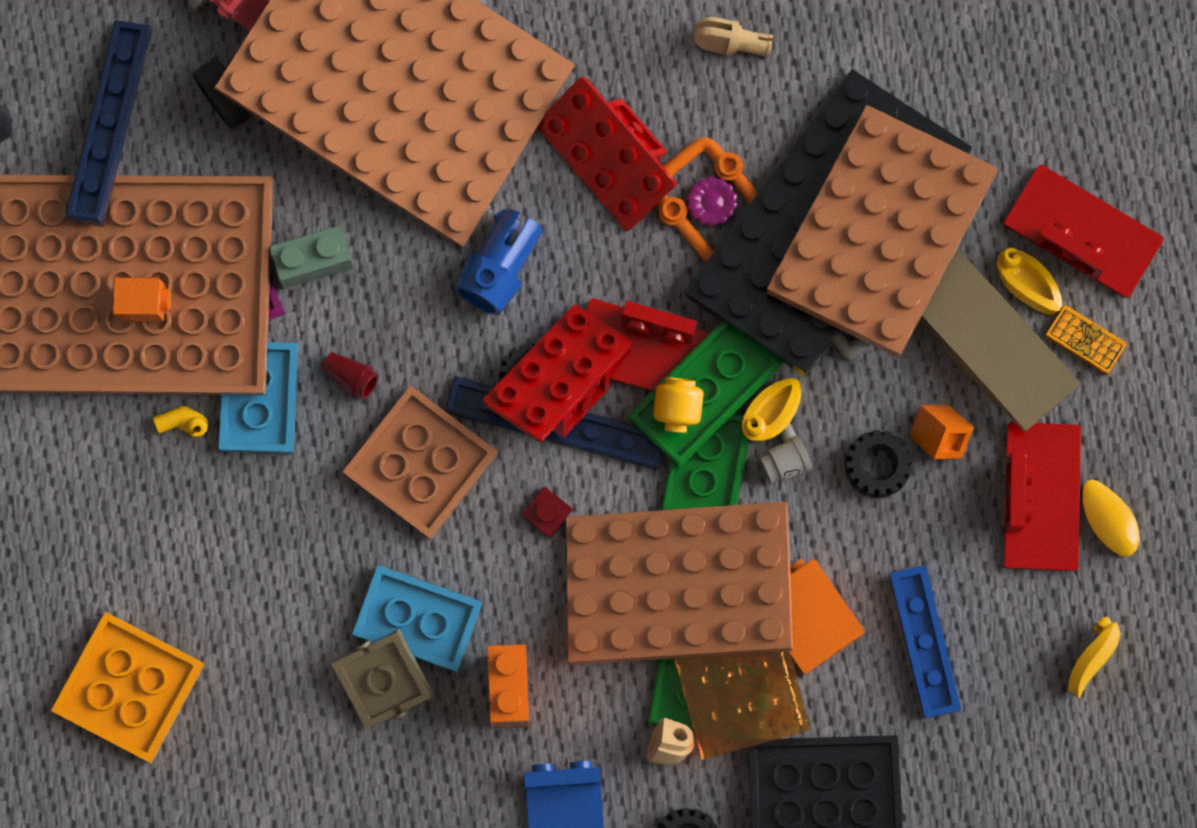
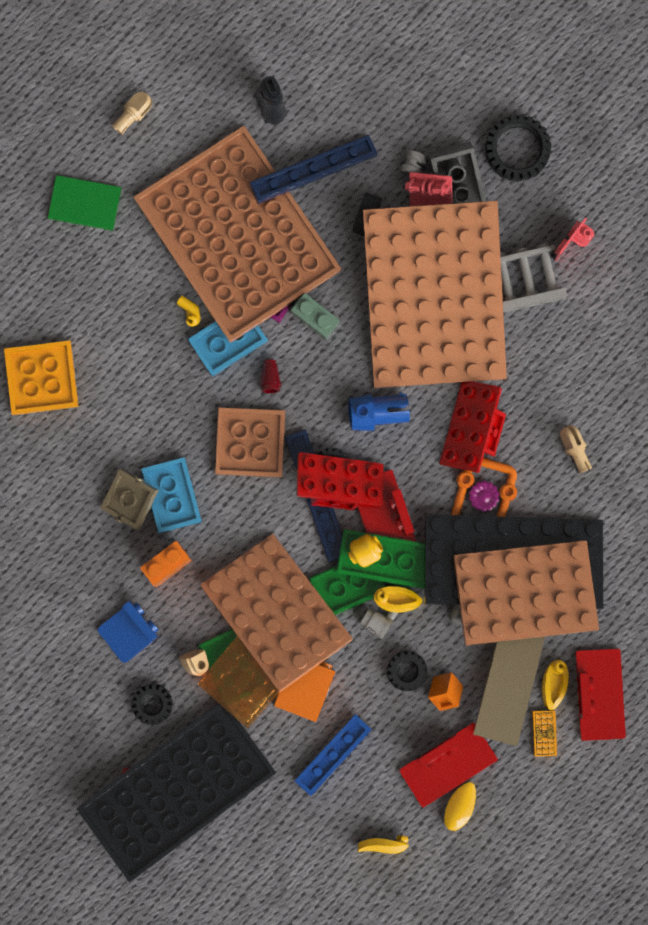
camera: 55 degrees right, 5 degrees up
(141, 299) = (233, 248): orange brick -> none
(547, 512) = (269, 522): dark red plate -> none

